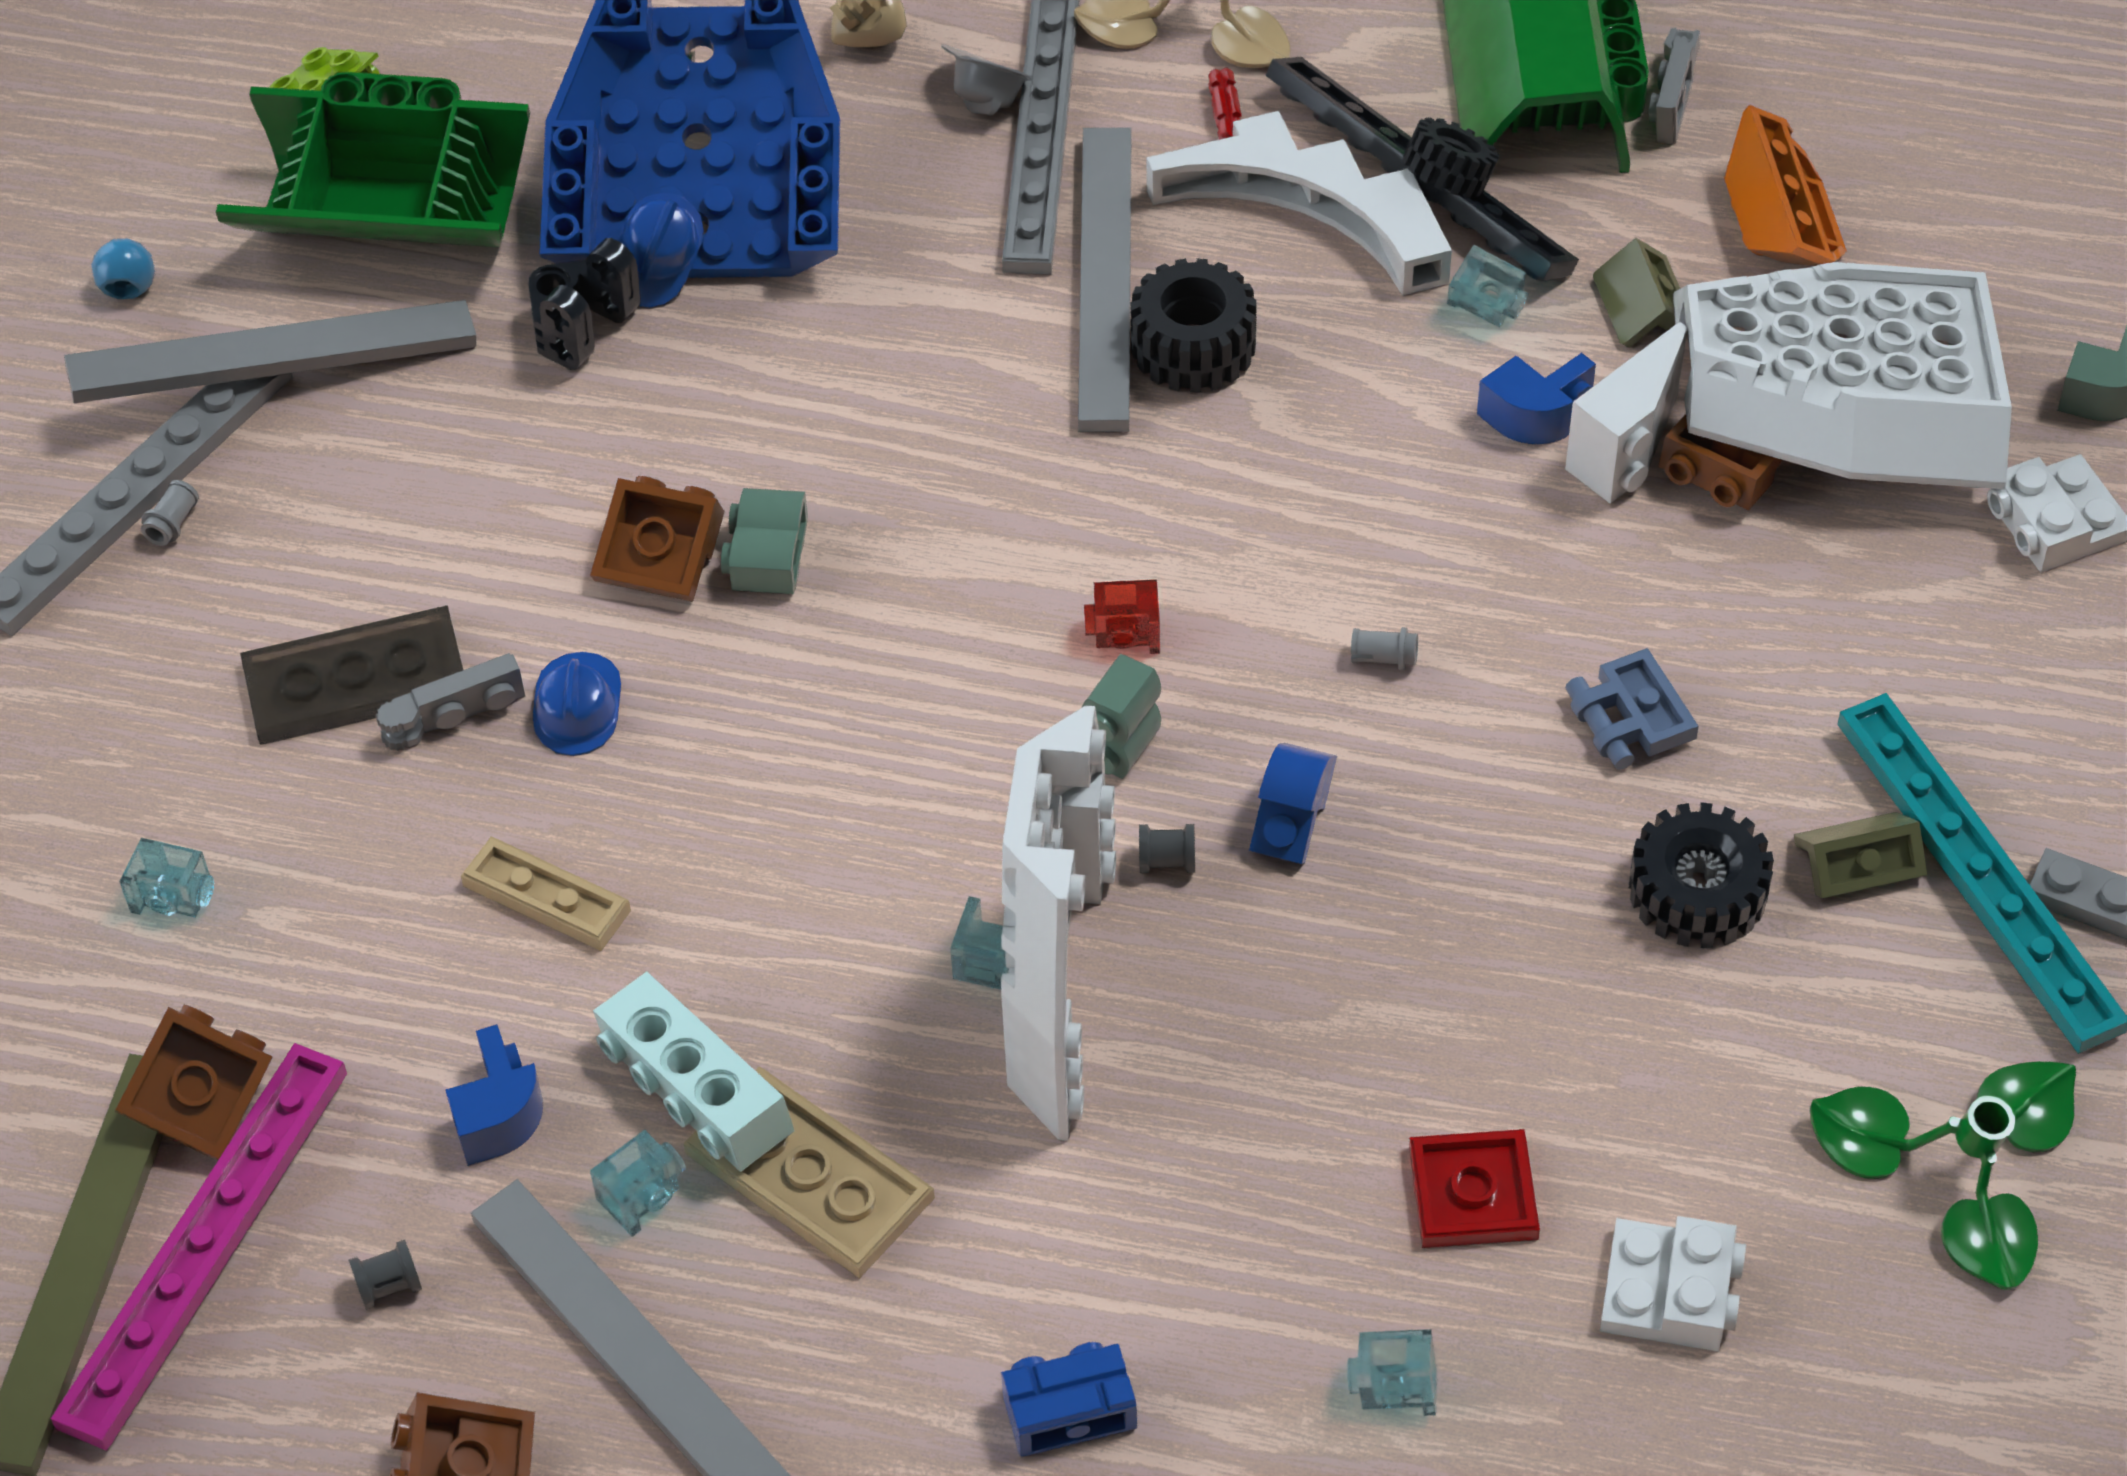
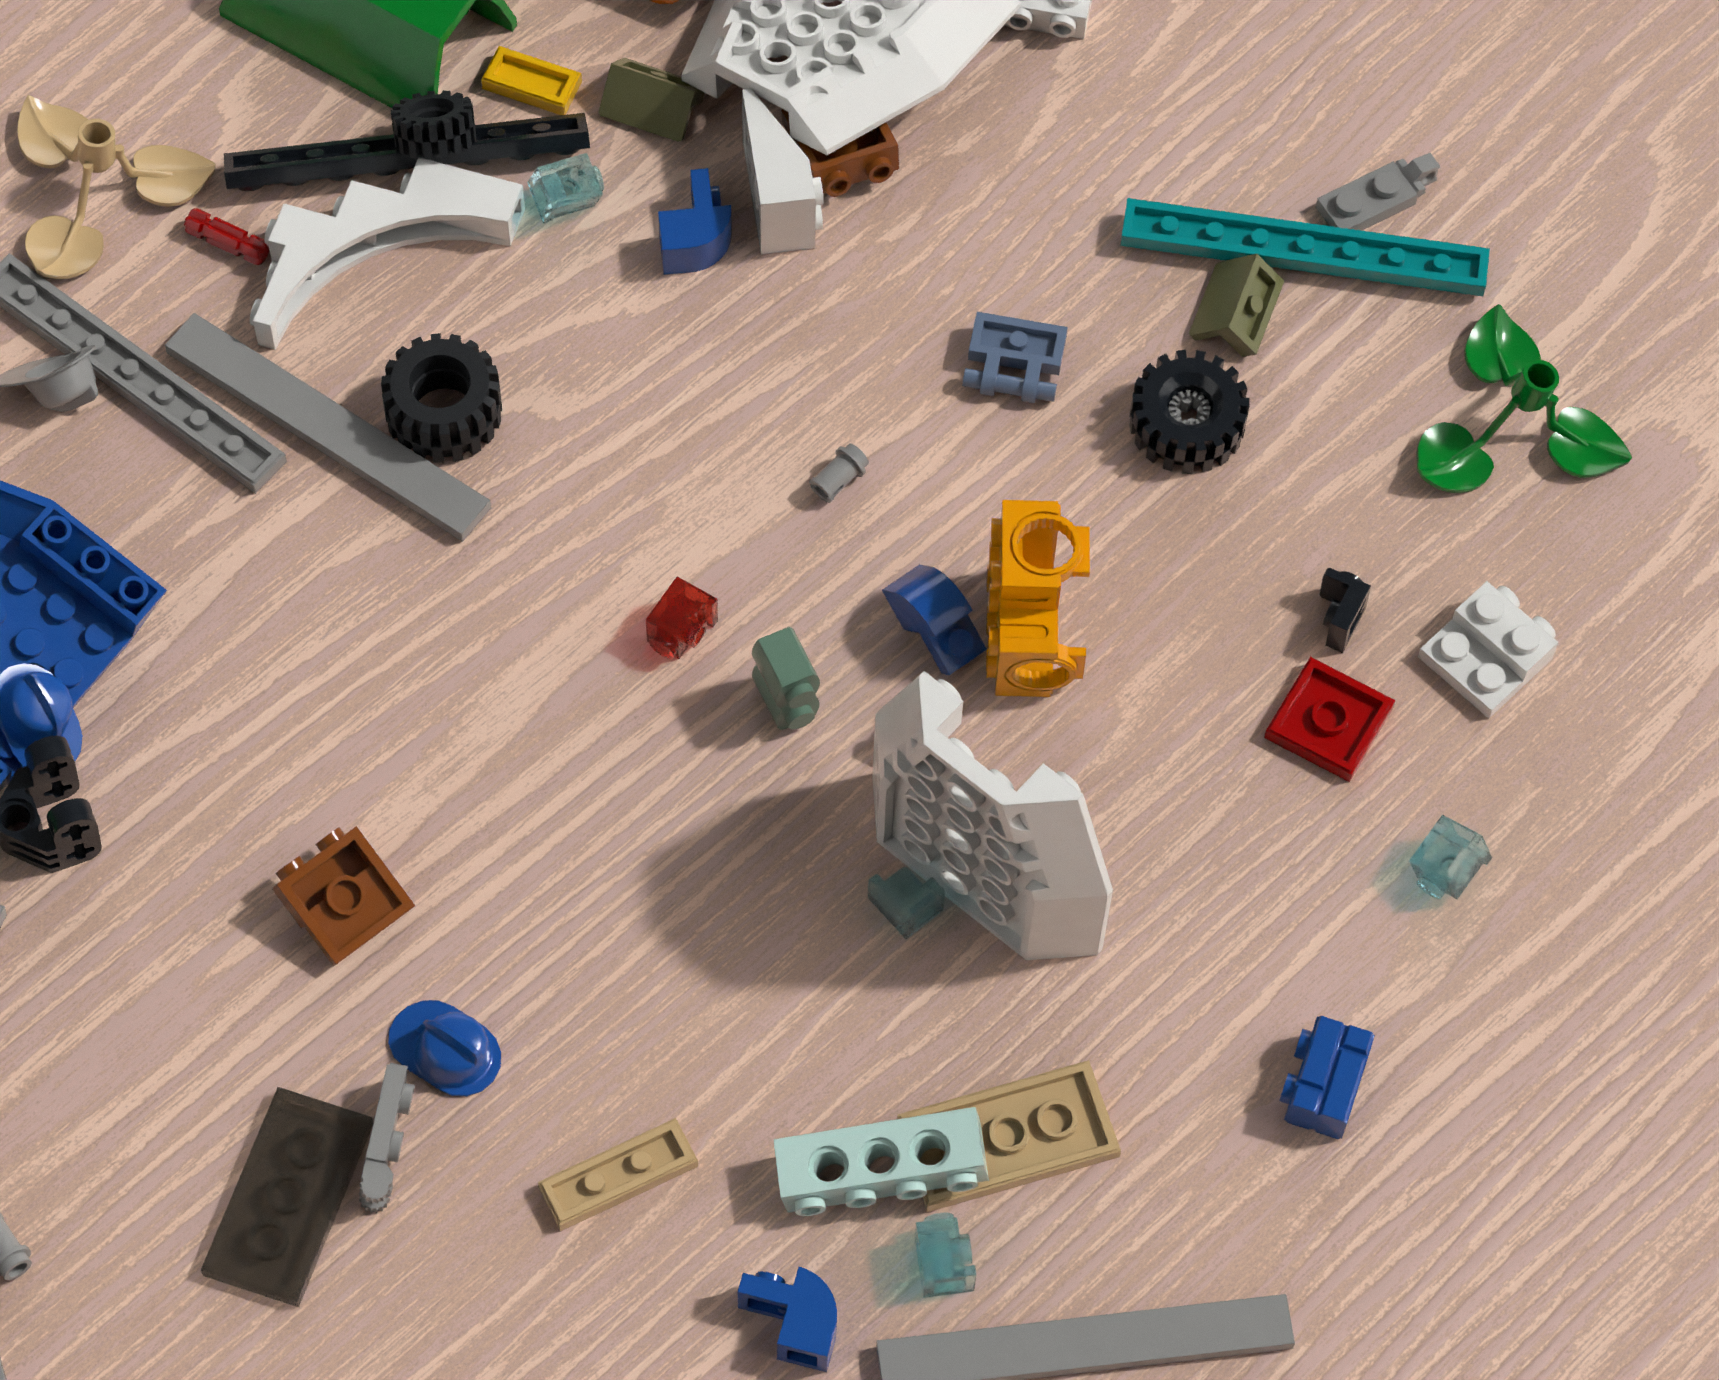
camera: 60 degrees left, 10 degrees up
(766, 540) = (405, 818): sand green brick -> none
(1362, 846) = (1026, 599): none -> light orange piece
(1579, 210) = (531, 80): none -> yellow tile
(1597, 1130) = (1349, 601): none -> black bracket

